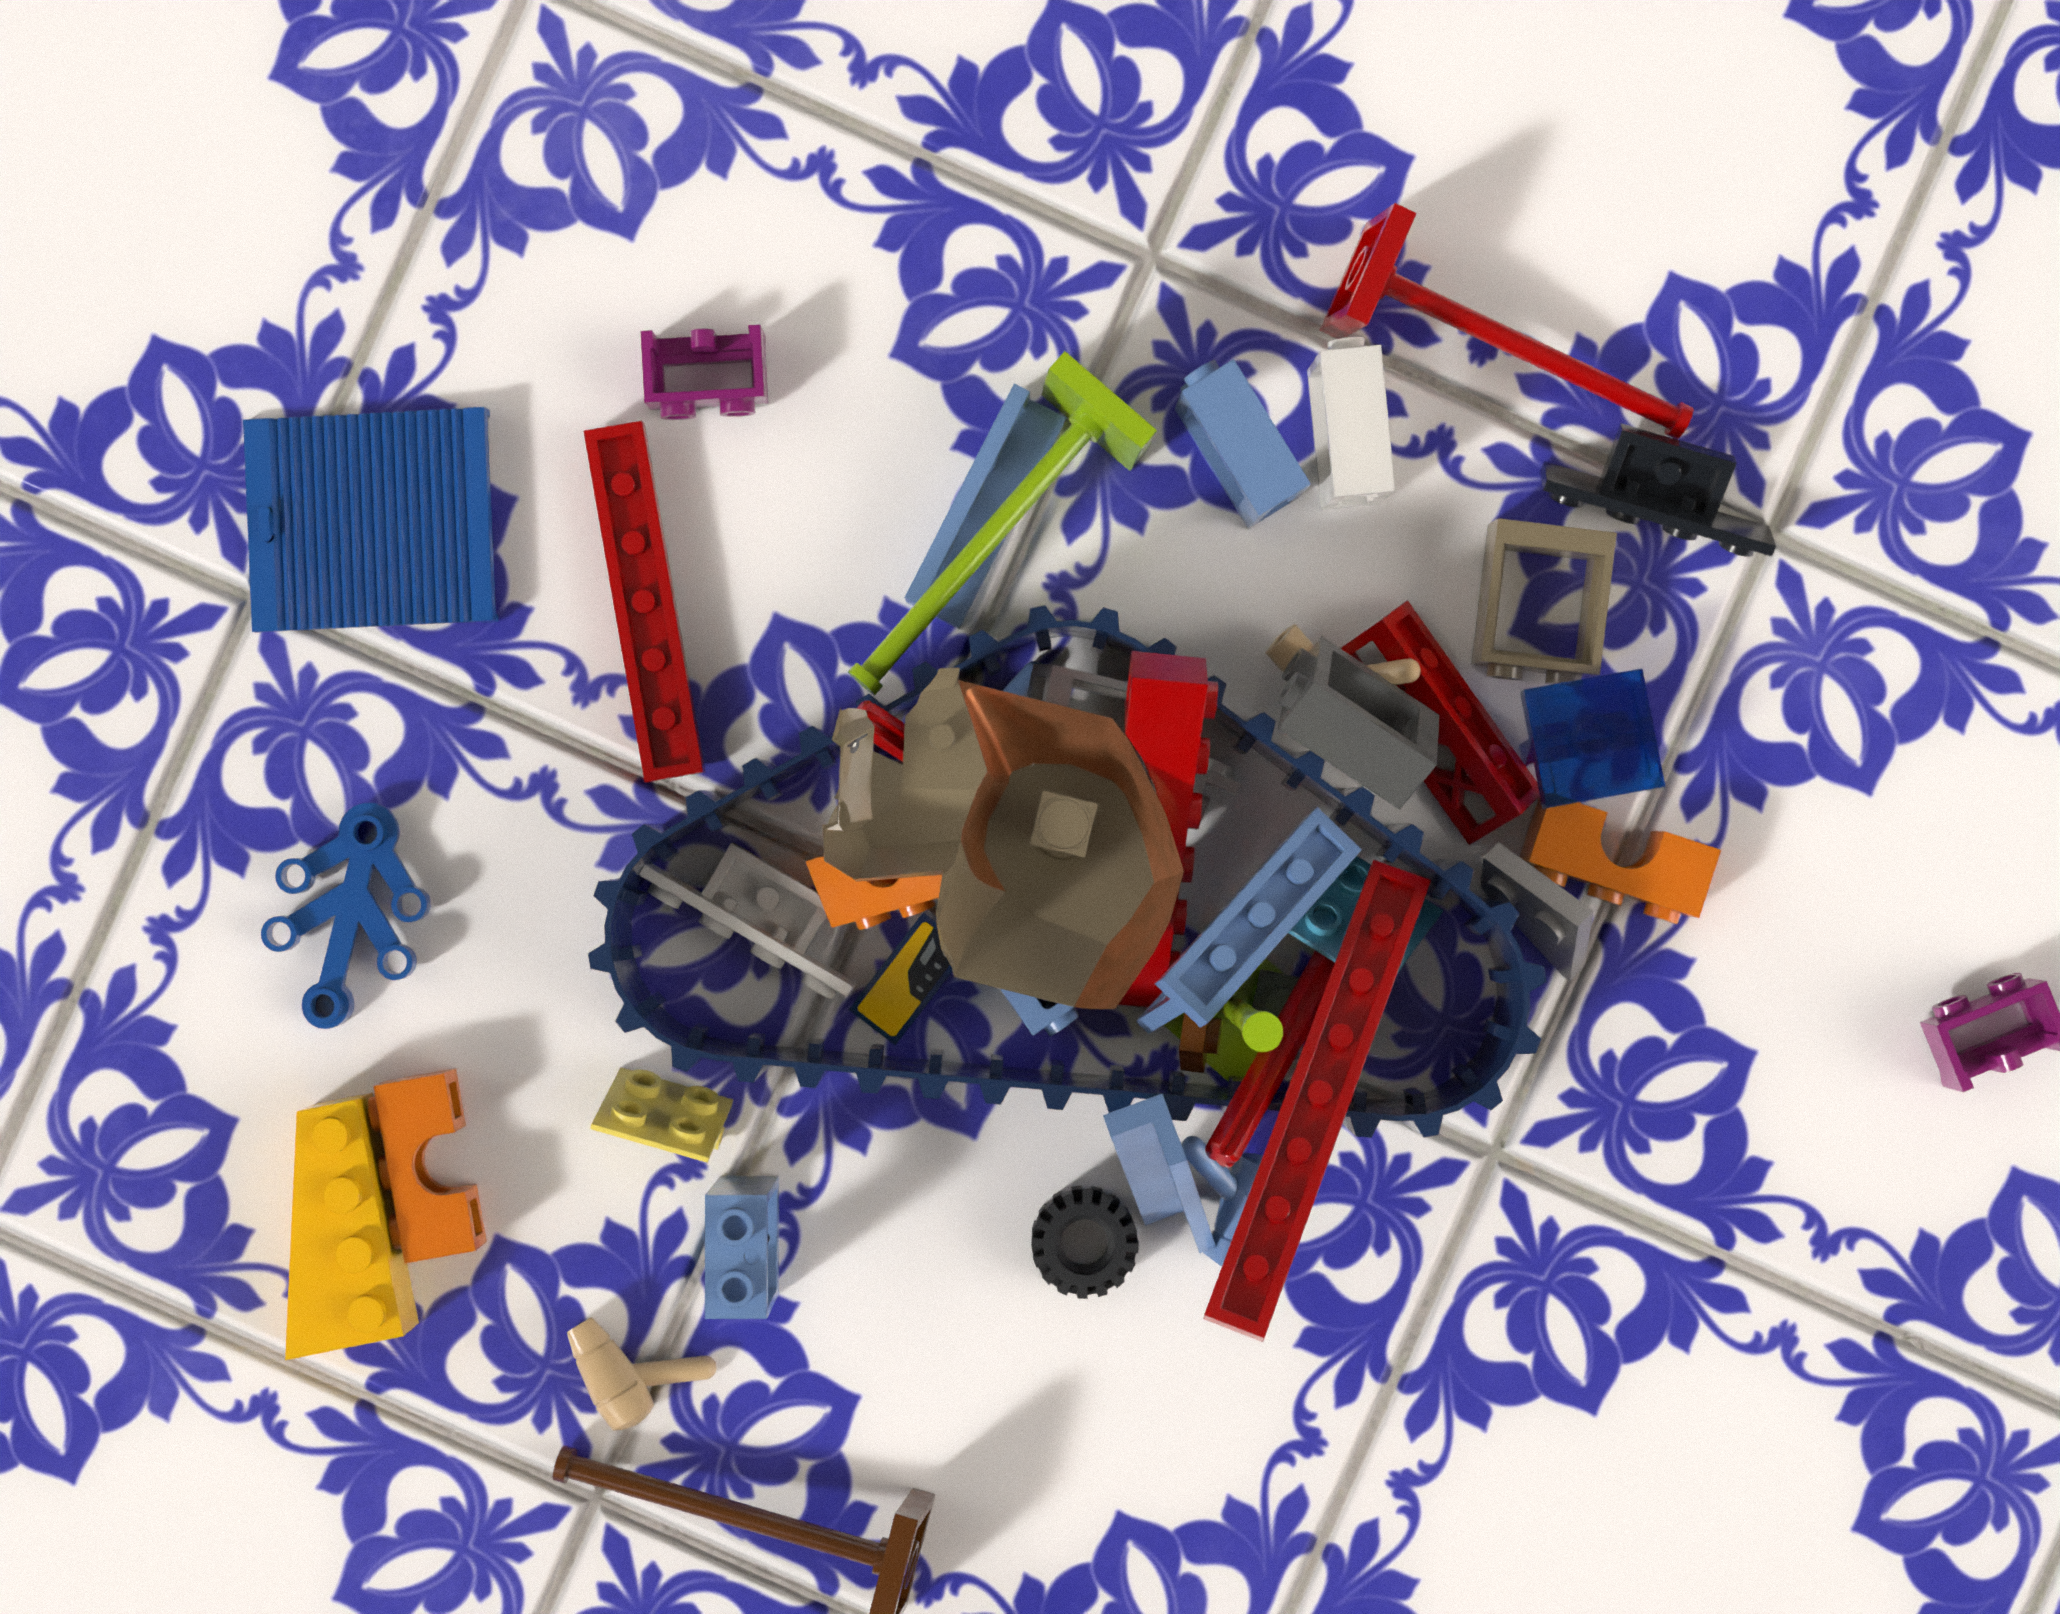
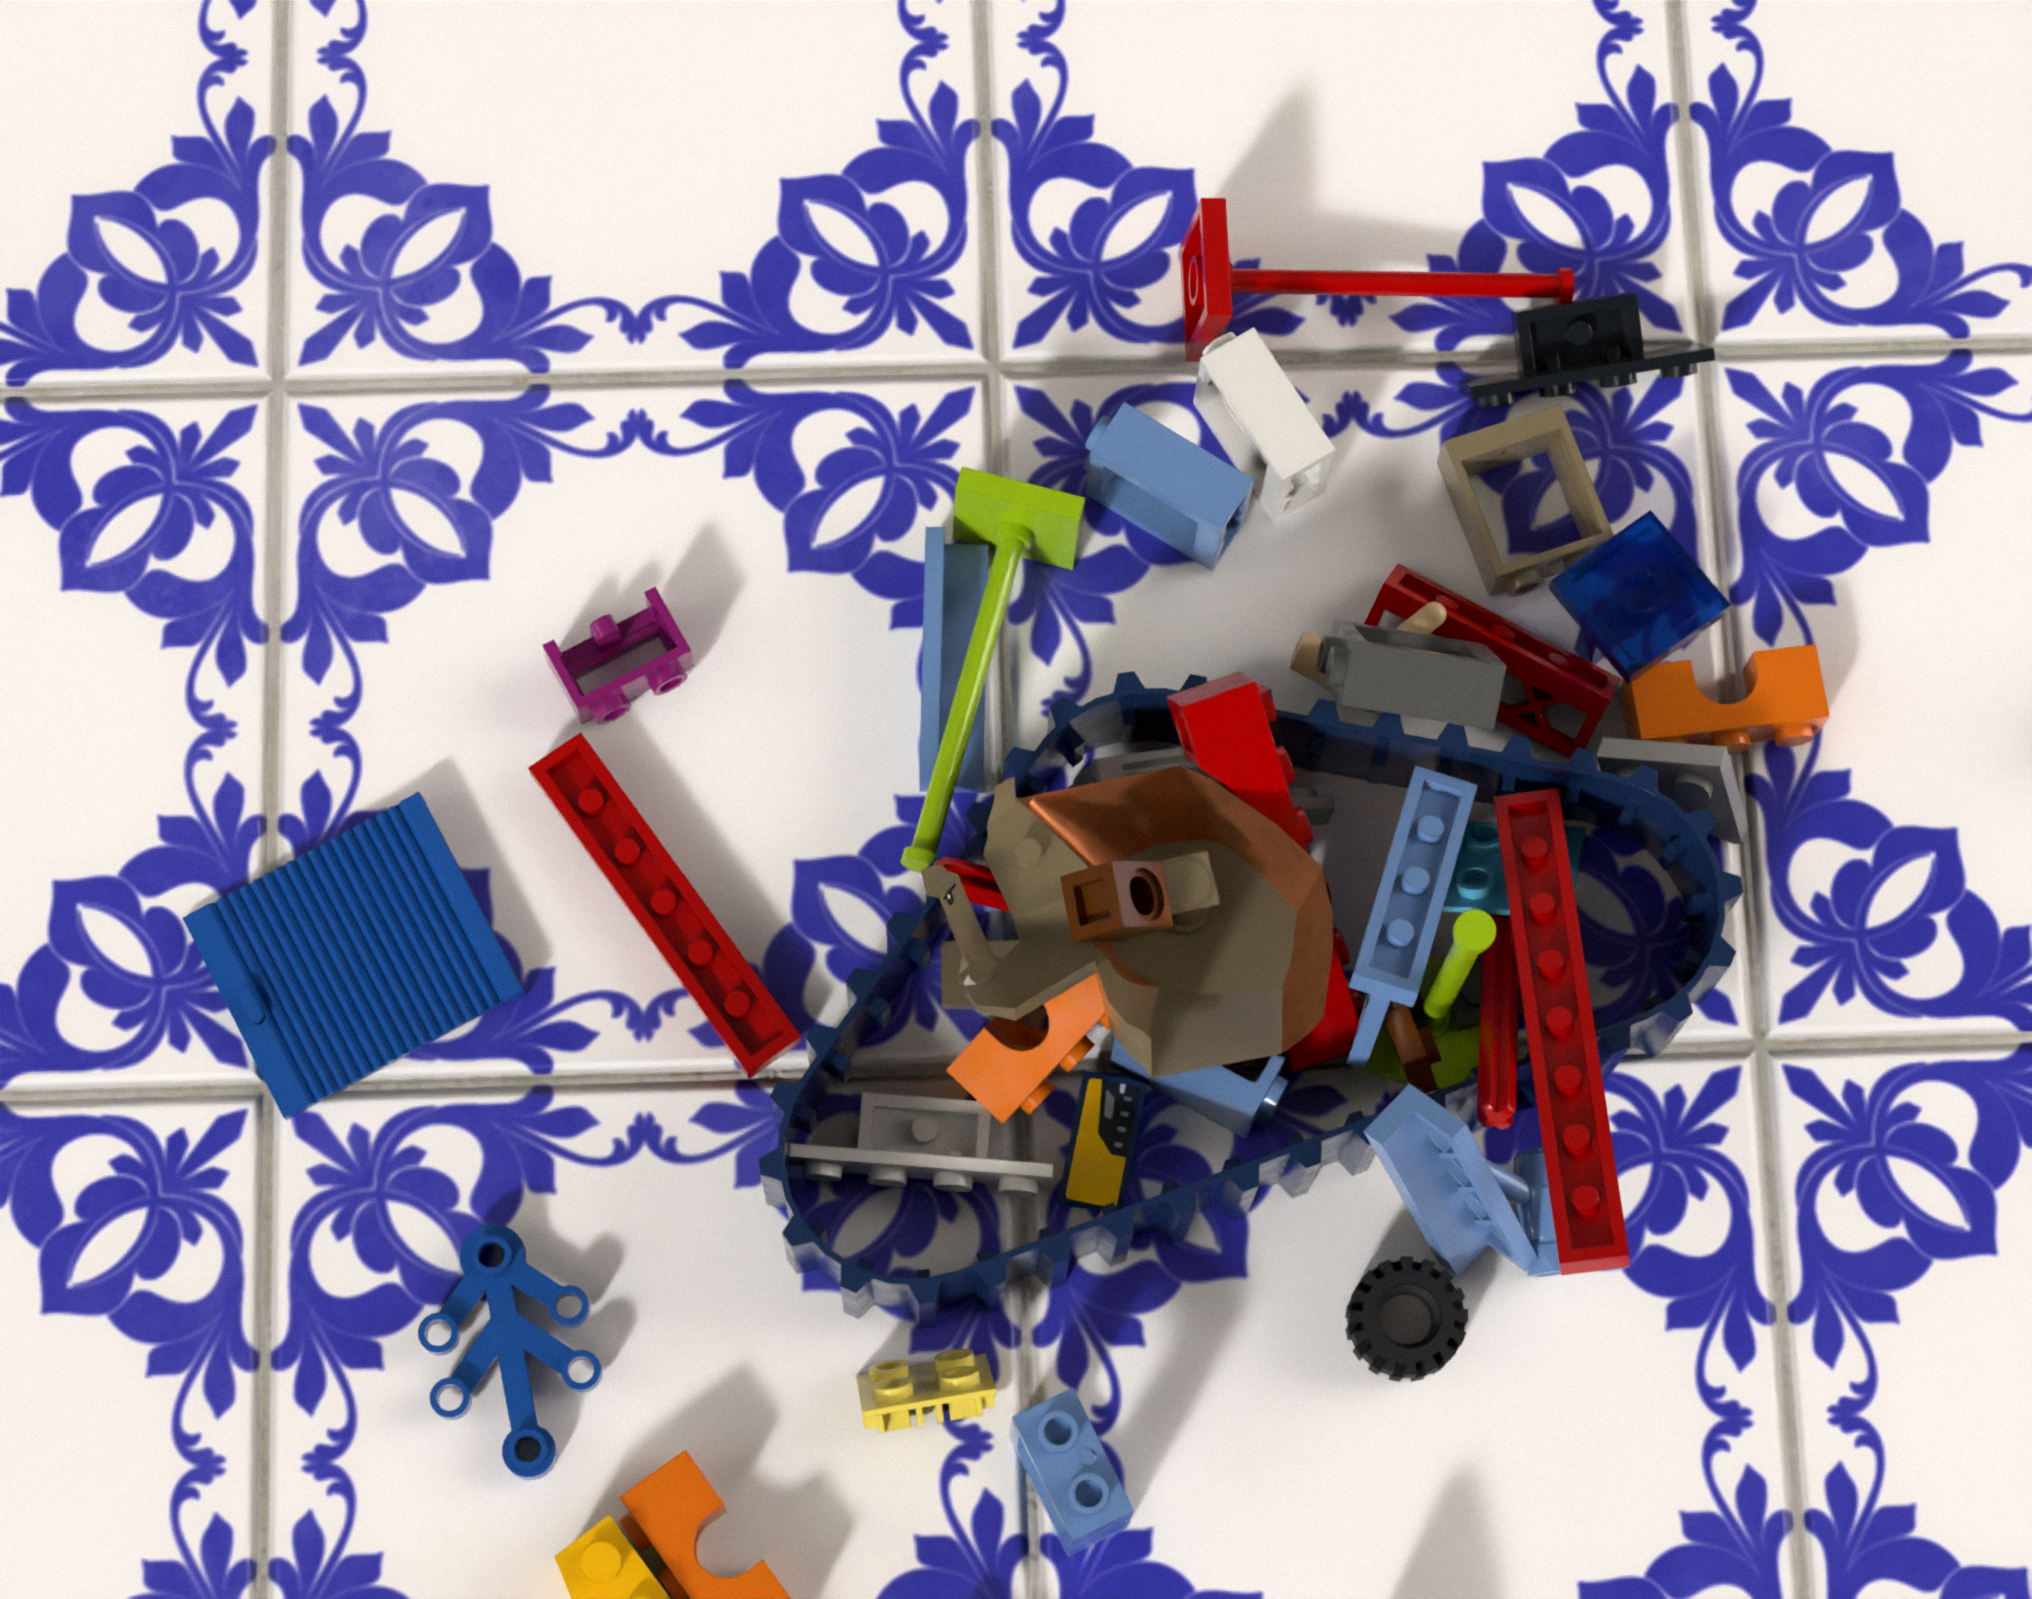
camera: 25 degrees left, 15 degrees down
(993, 819) = (1116, 901): none -> reddish brown brick

